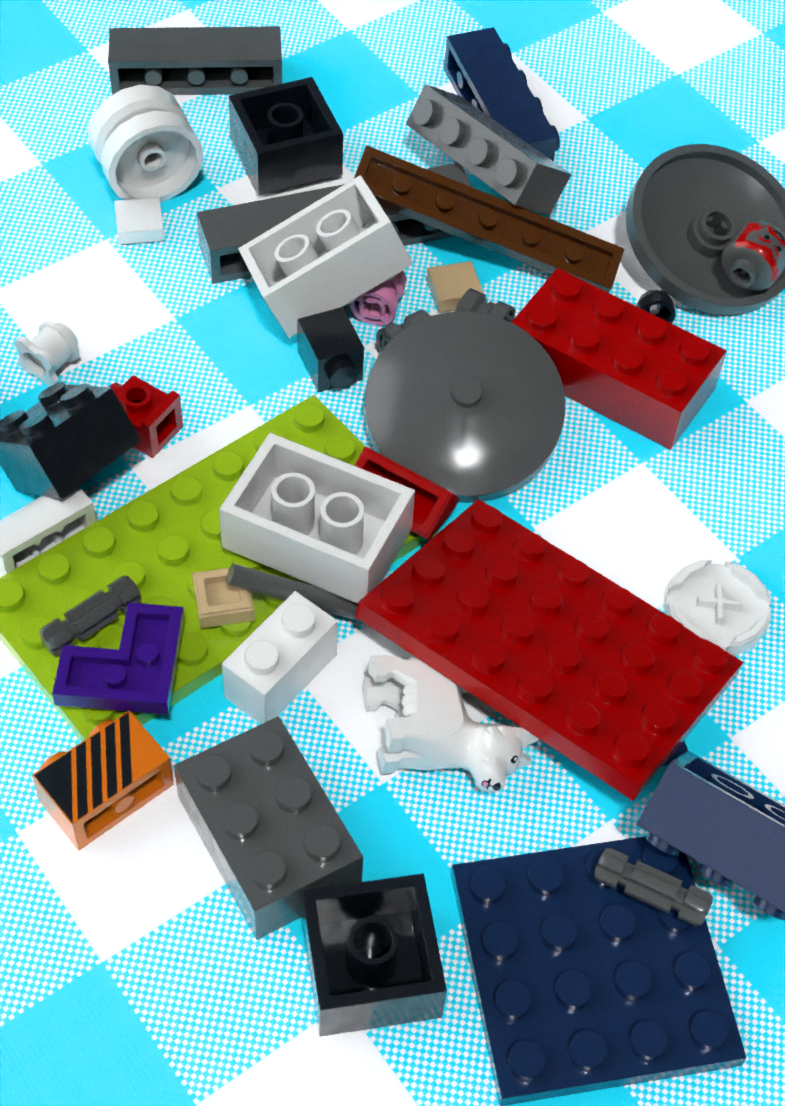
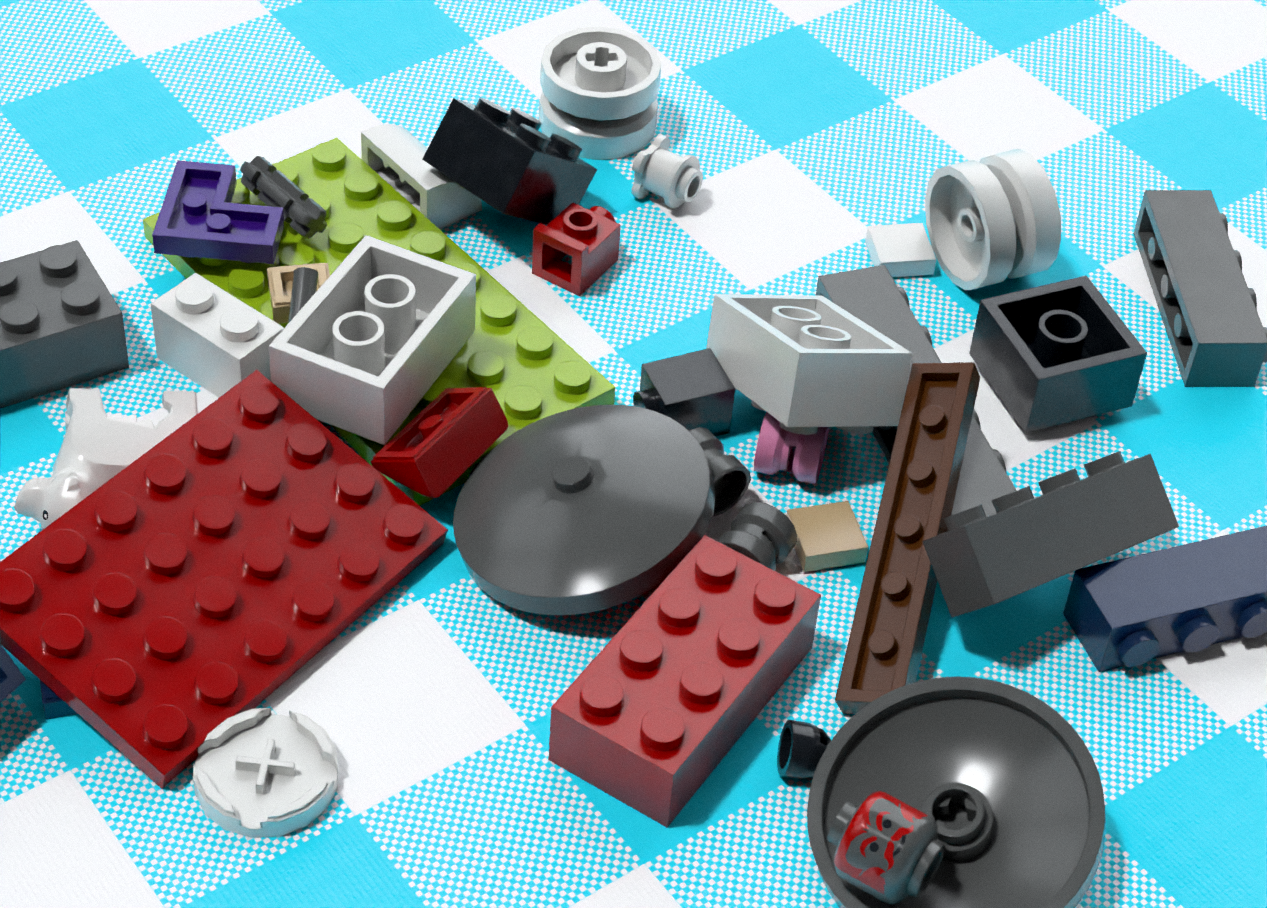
camera: 90 degrees right, 10 degrees down
(103, 779) = (102, 216): orange brick -> none

